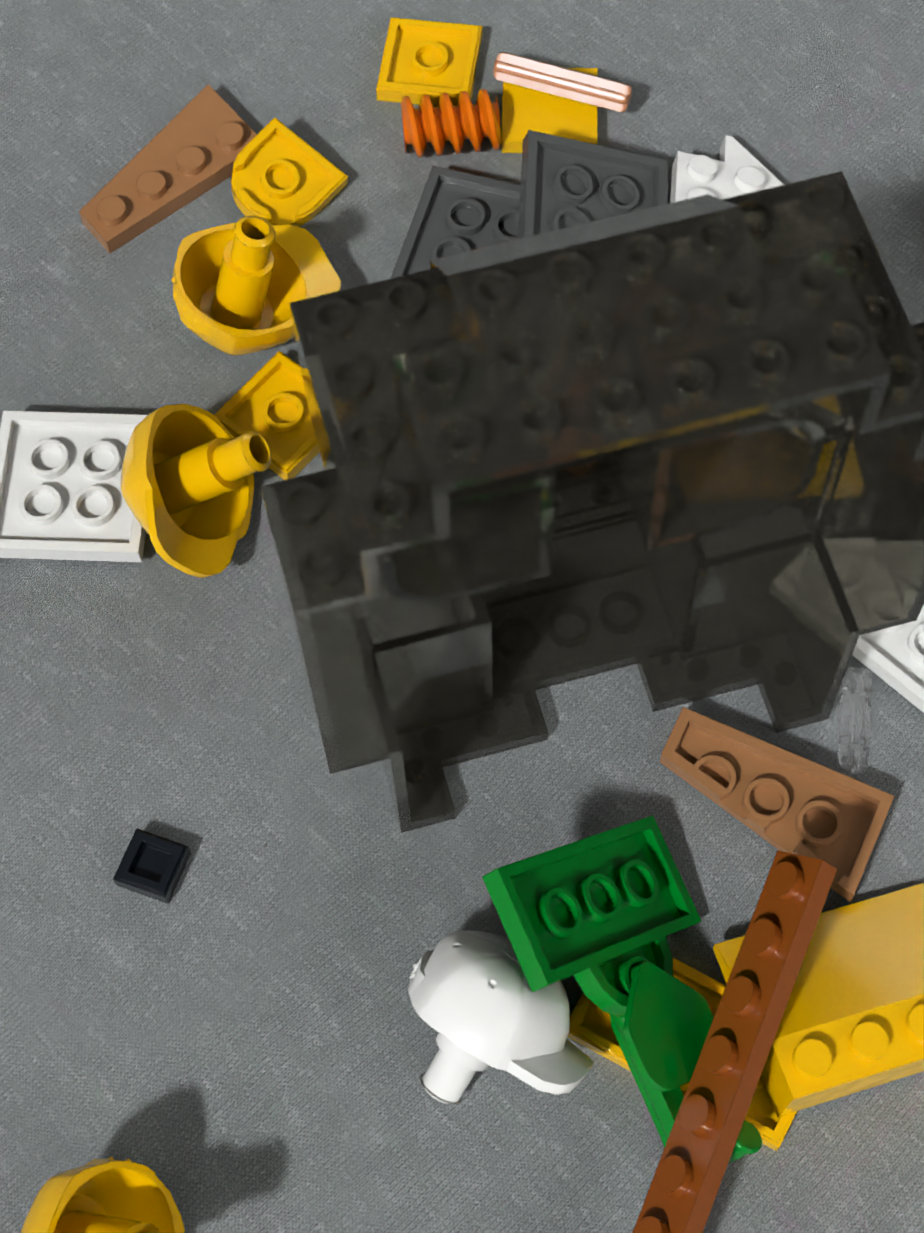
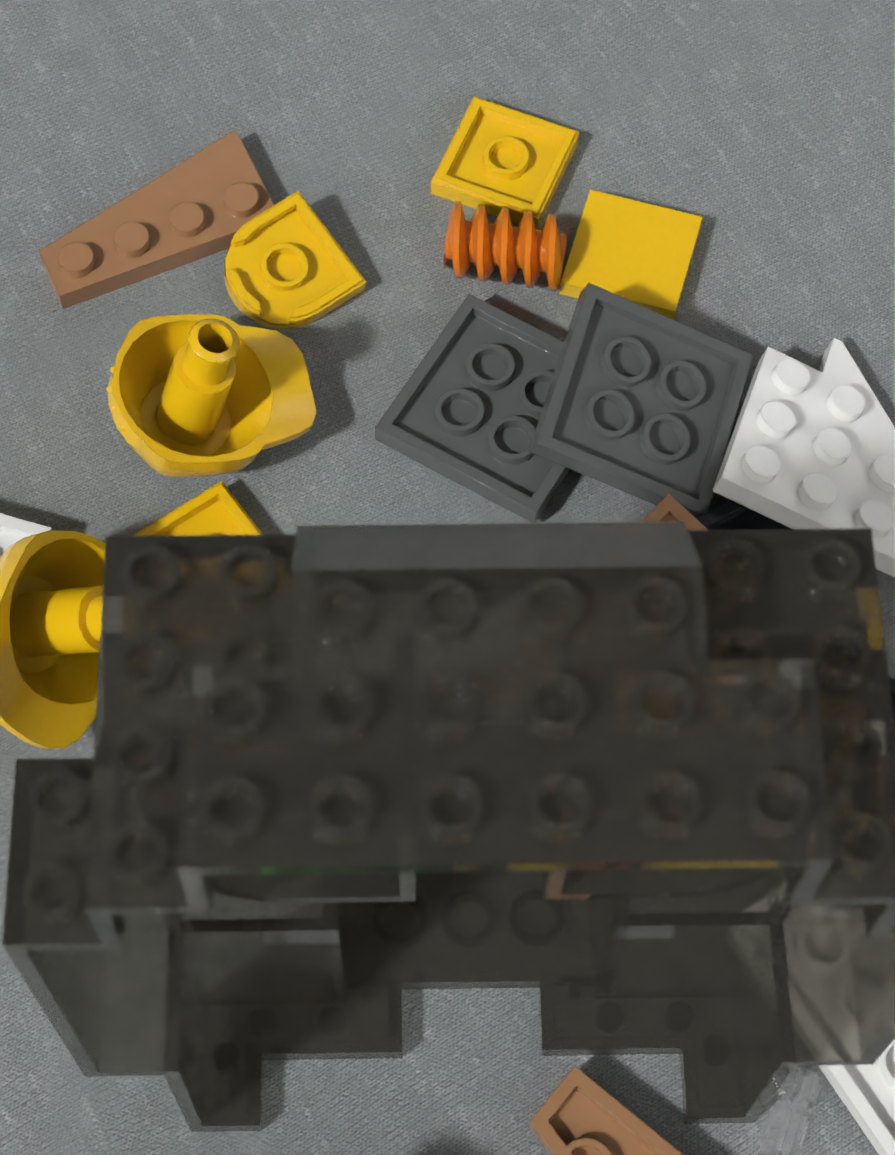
camera: 10 degrees right, 0 degrees up
(562, 82) = (653, 226): axle -> none

